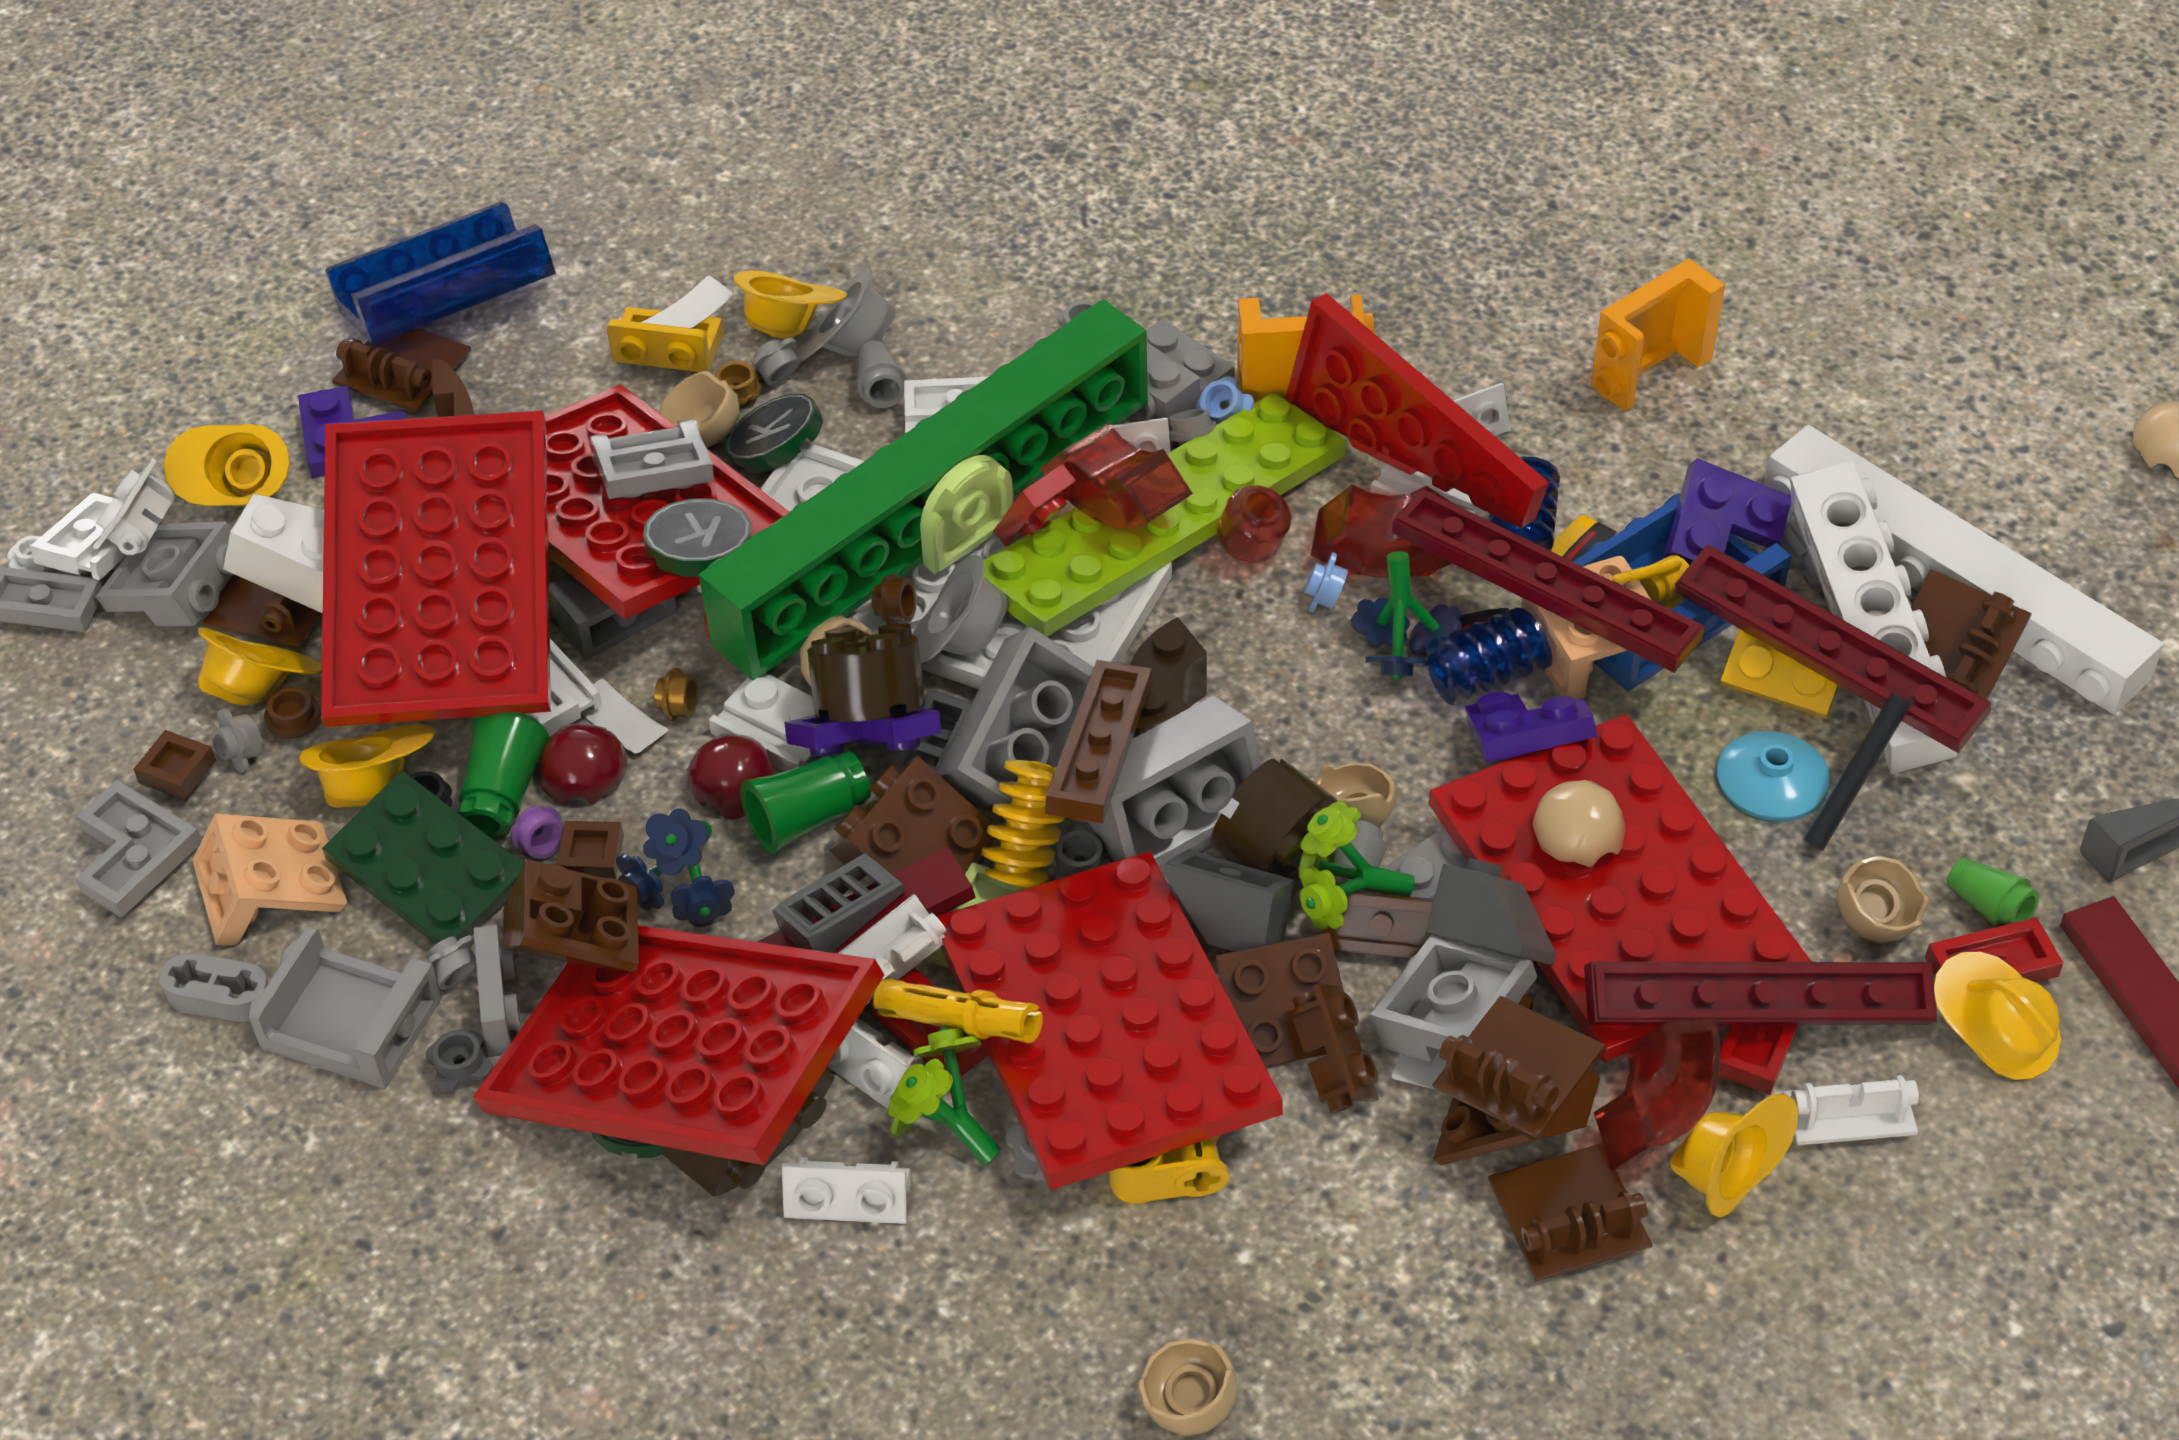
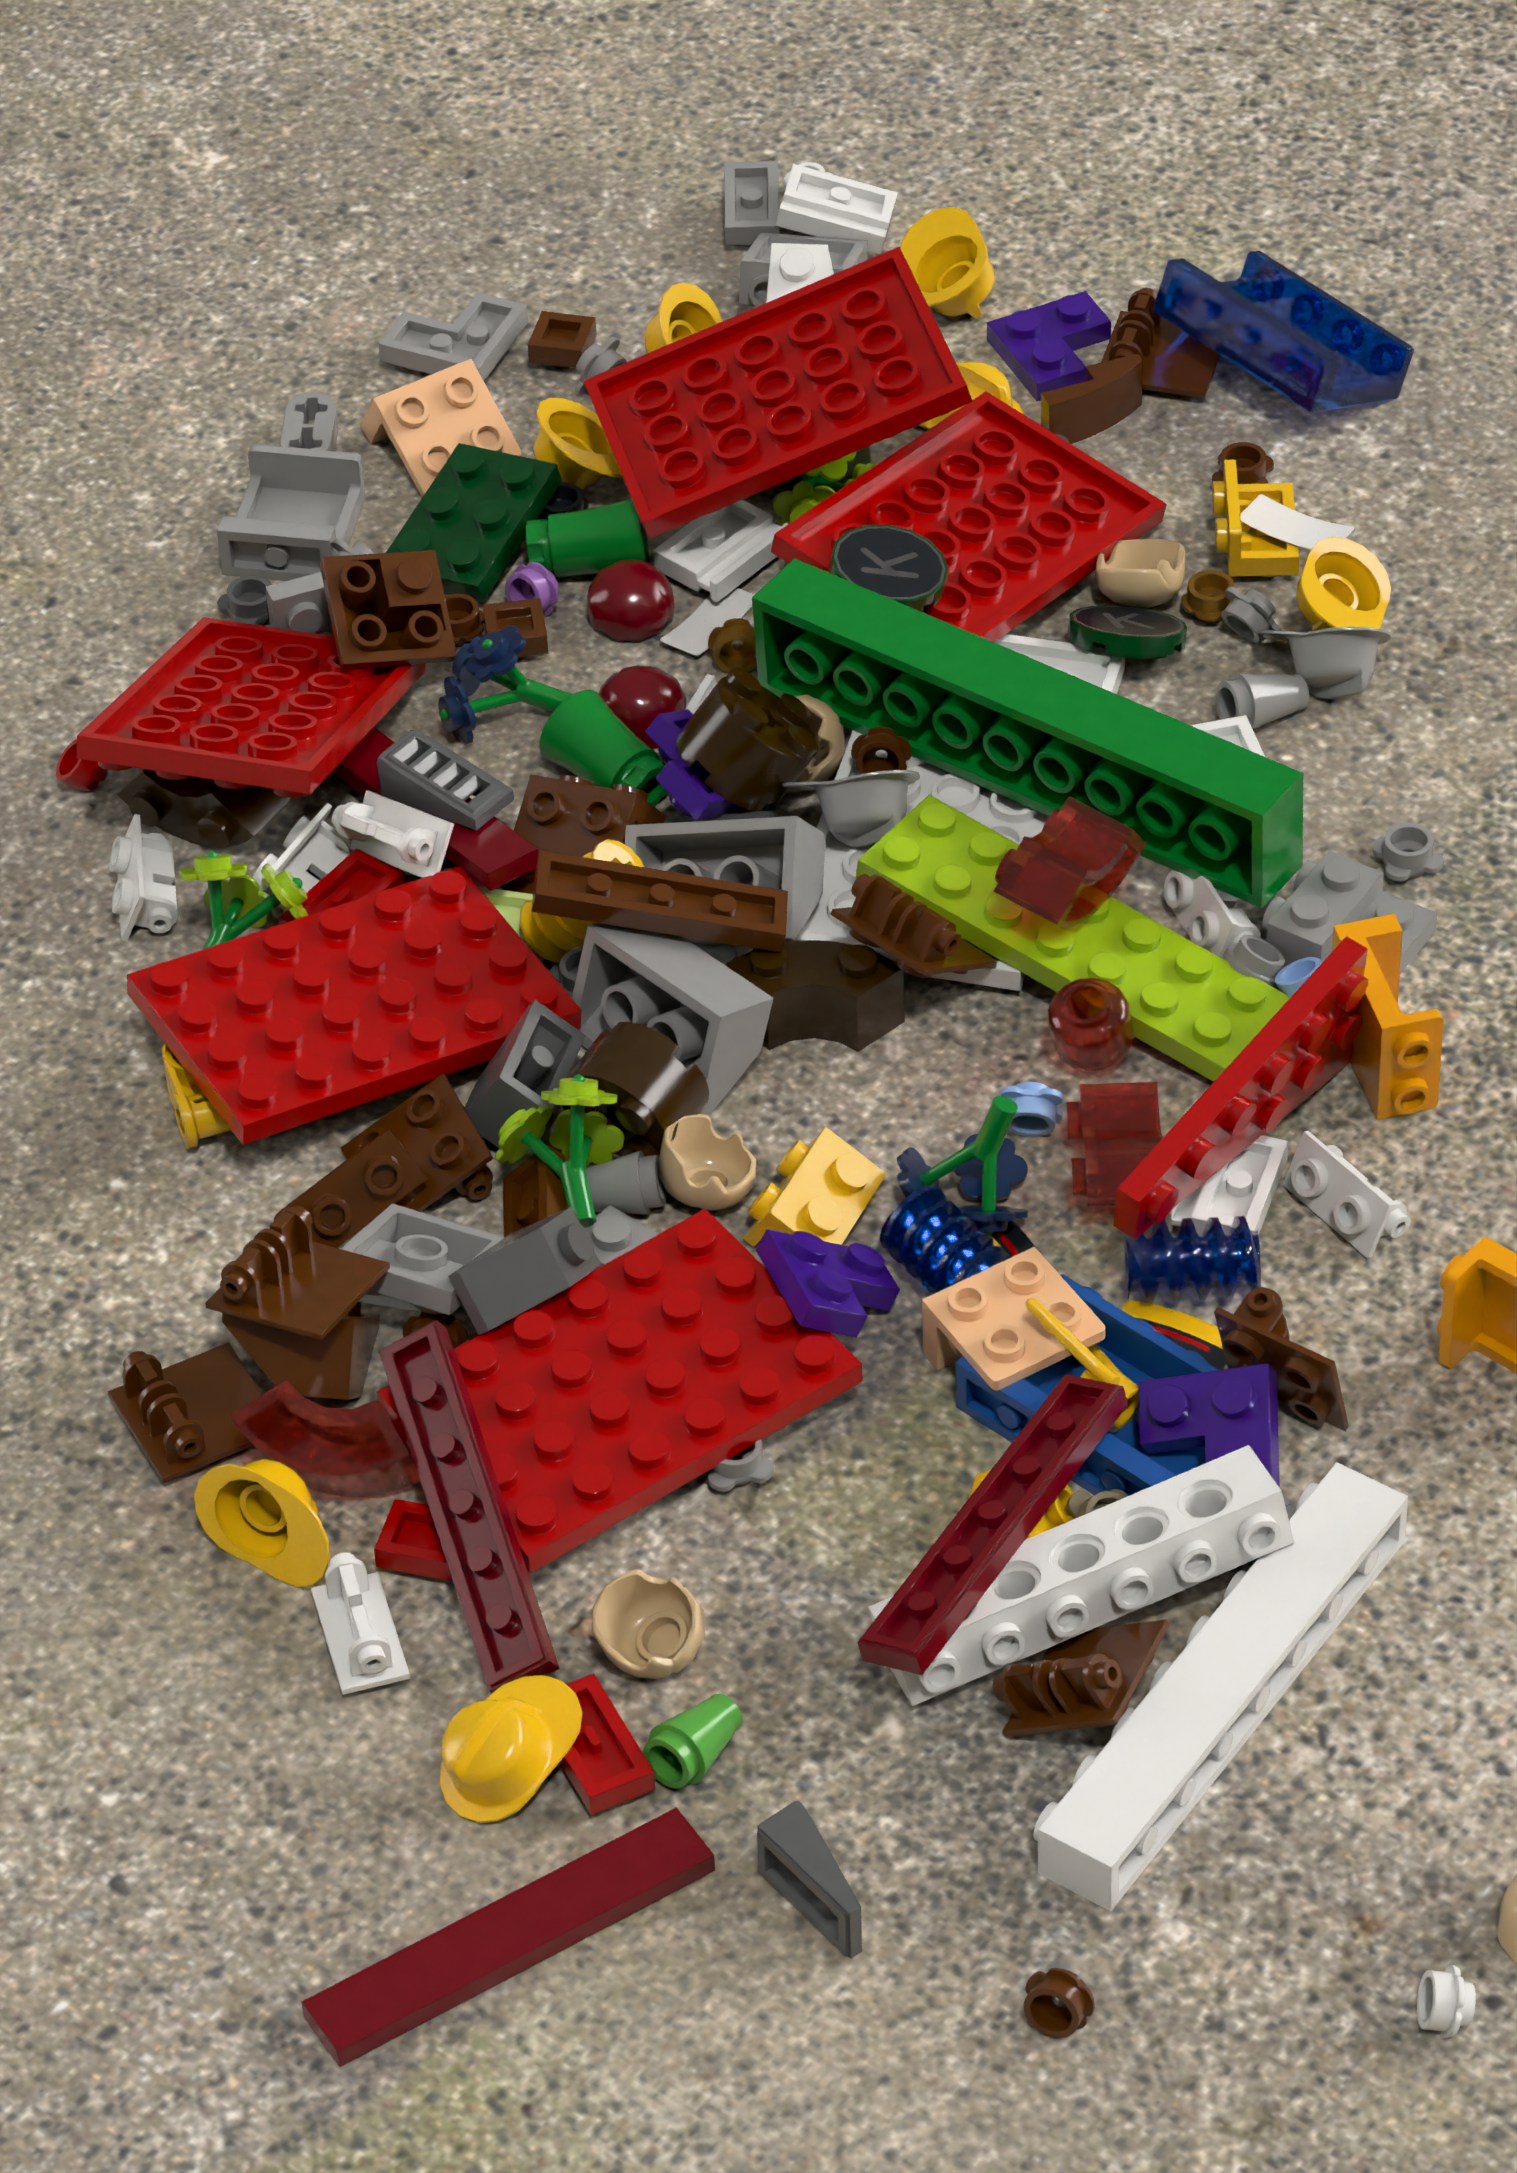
camera: 80 degrees right, 5 degrees down
(137, 515) = (839, 208): white hinge -> none
(580, 339) = (1251, 463): none -> reddish brown plate
(652, 460) = (1008, 523): light grey plate -> none
(655, 1237) = (78, 772): none -> red hinge
(964, 510) = (1003, 767): yellowish green tile -> none
(976, 1013) = (310, 887): yellow pin -> none
(1035, 506) = (1010, 807): red plate -> none
(1147, 600) = (908, 930): none -> reddish brown hinge
(1395, 738) = (820, 1191): none -> yellow bracket
(1548, 580) = (1022, 1251): dark red tile -> none
(1579, 822) = (657, 1316): tan hair -> none
(1652, 468) = (1261, 1336): none -> reddish brown hinge
(1772, 776) = (851, 1545): medium azure dish -> none
(1857, 772) = (823, 1578): black bar -> none

